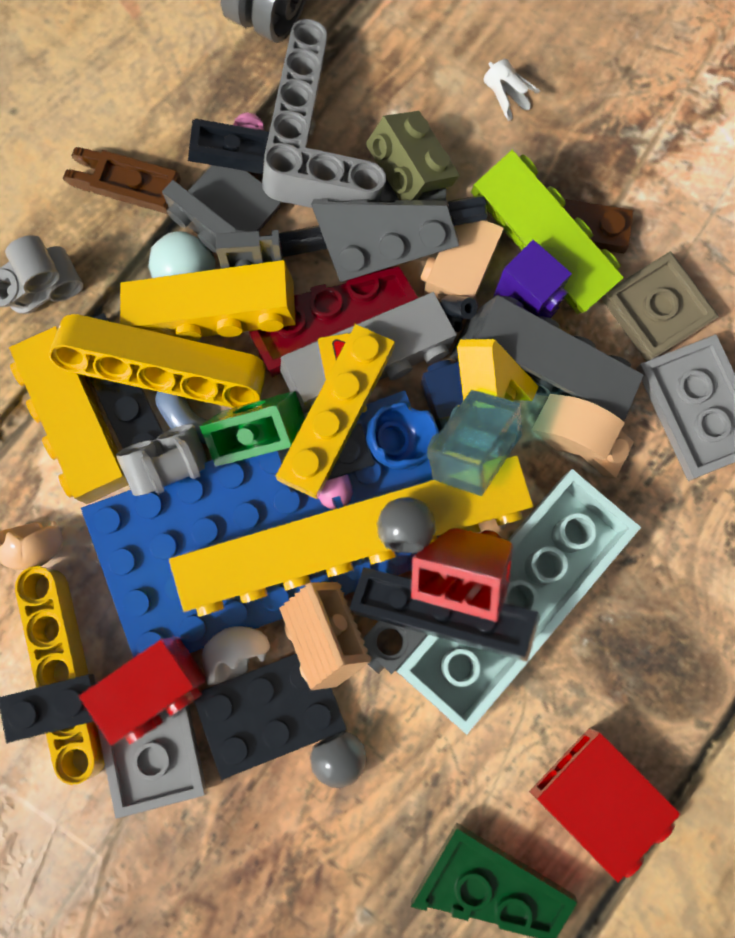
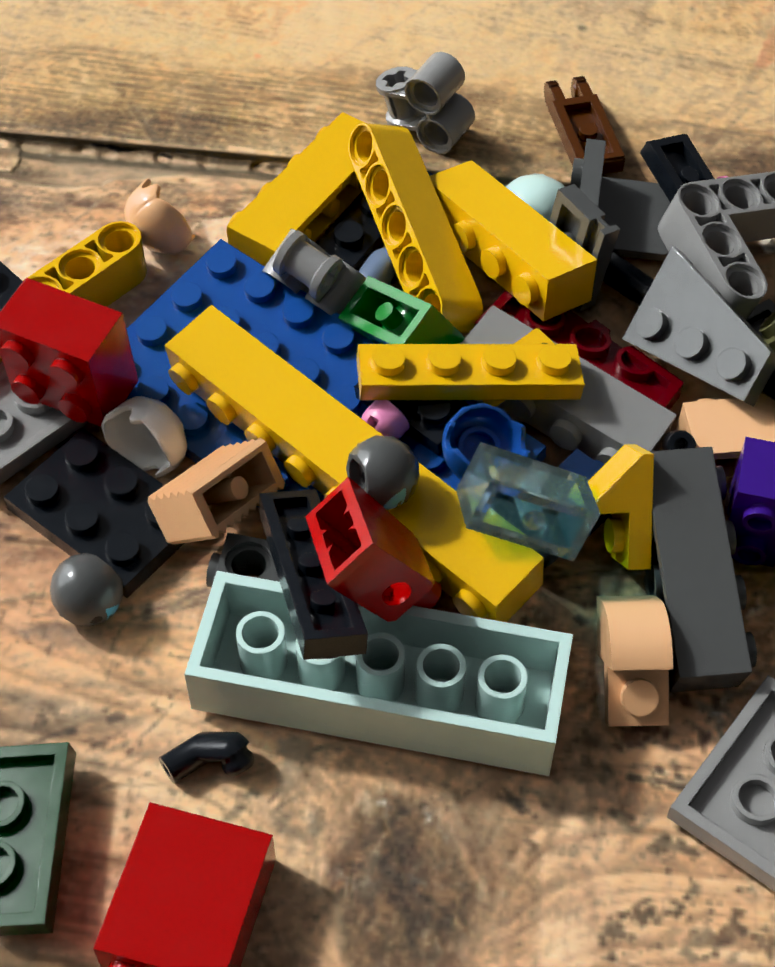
camera: 60 degrees right, 25 degrees down
(499, 732) = (207, 748): none -> black arm

